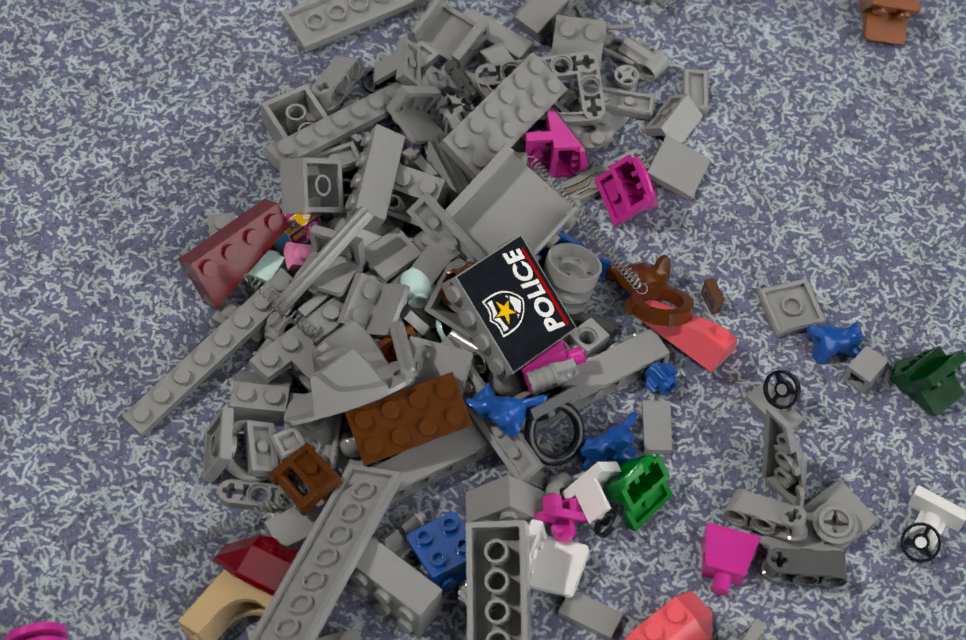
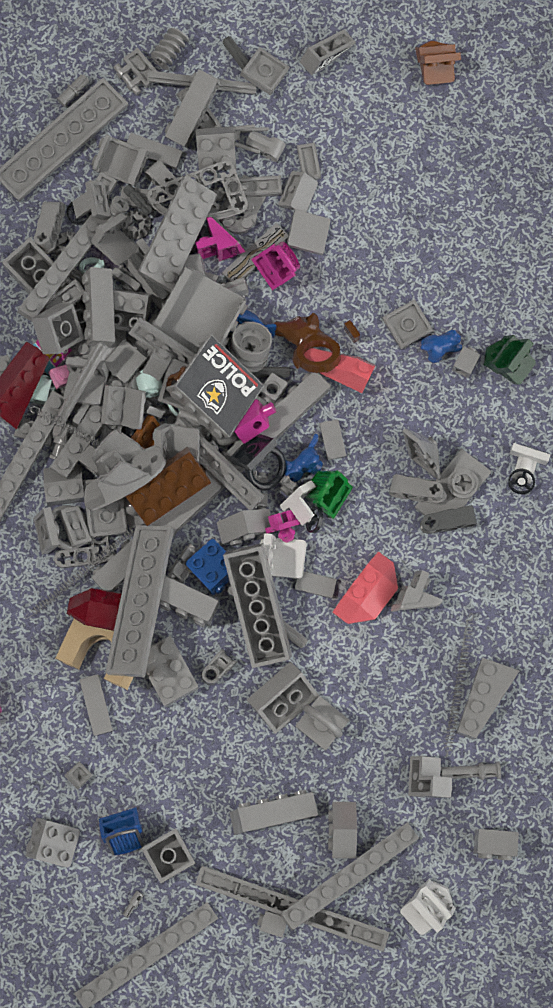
camera: 10 degrees left, 20 degrees up
(286, 442) = (92, 520): light grey tile -> none
(314, 474) = (112, 537): reddish brown plate -> none
(402, 350) = (152, 442): light grey axle -> none
(504, 412) = (228, 469): blue animal -> none
(552, 376) = (255, 432): light grey hinge -> none
(557, 483) = (274, 500): light grey arm -> none
(579, 464) = (287, 486): none -> light grey plate
(586, 228) = (285, 334): light grey piece -> none
(623, 74) = (257, 163): light grey wheel -> none
(661, 378) = (328, 404): blue gear -> none
(726, 556) = (396, 524): dark pink torso -> none
(780, 397) = (410, 403): piece -> none

